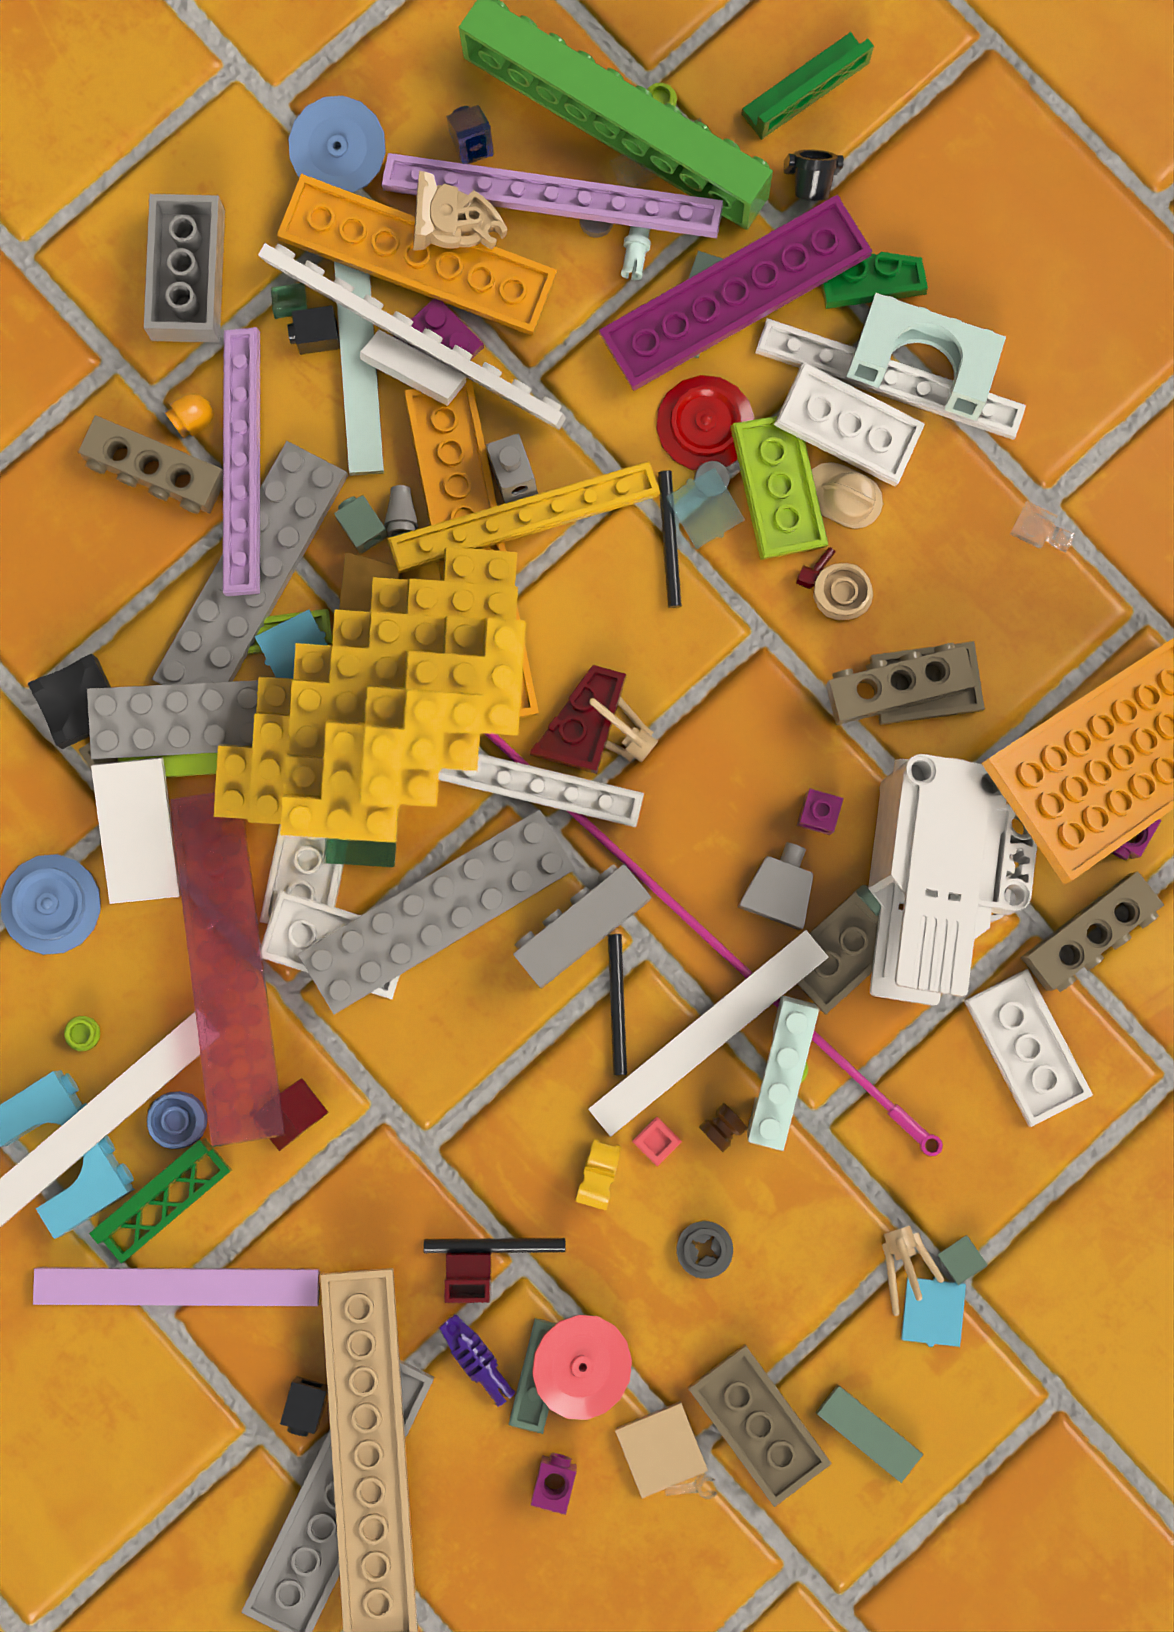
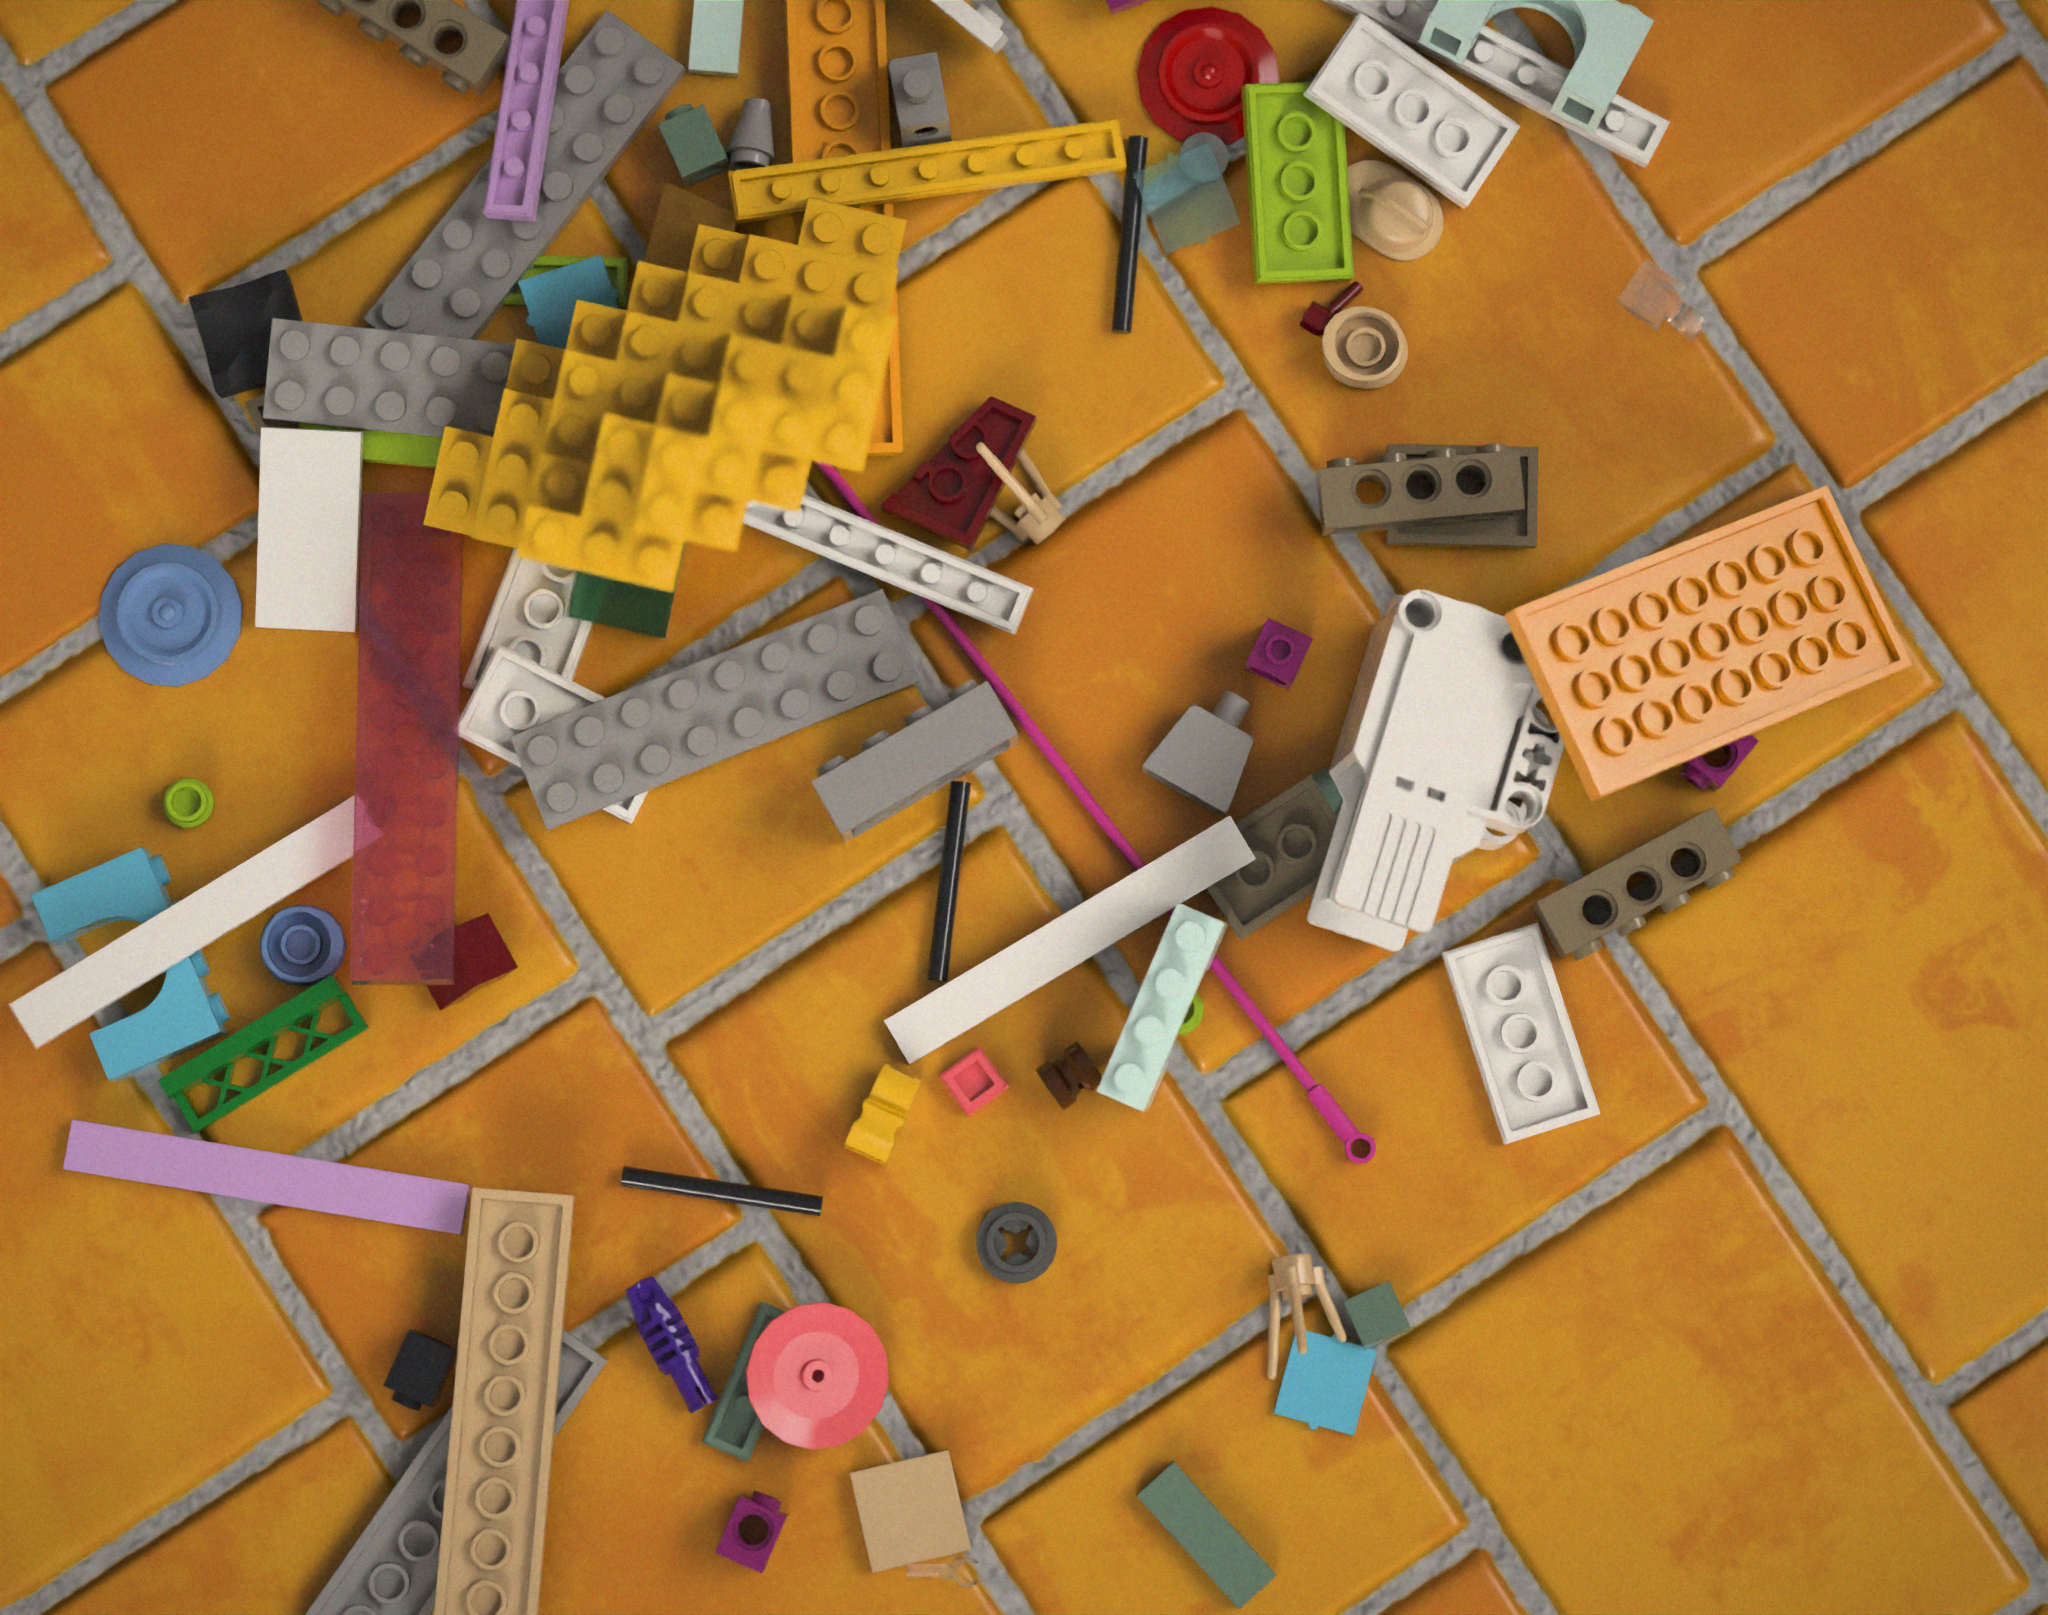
camera: 10 degrees right, 0 degrees up
(468, 1278) = (678, 1227): dark red piece -> none
(759, 1425) = (1053, 1498): dark tan plate -> none

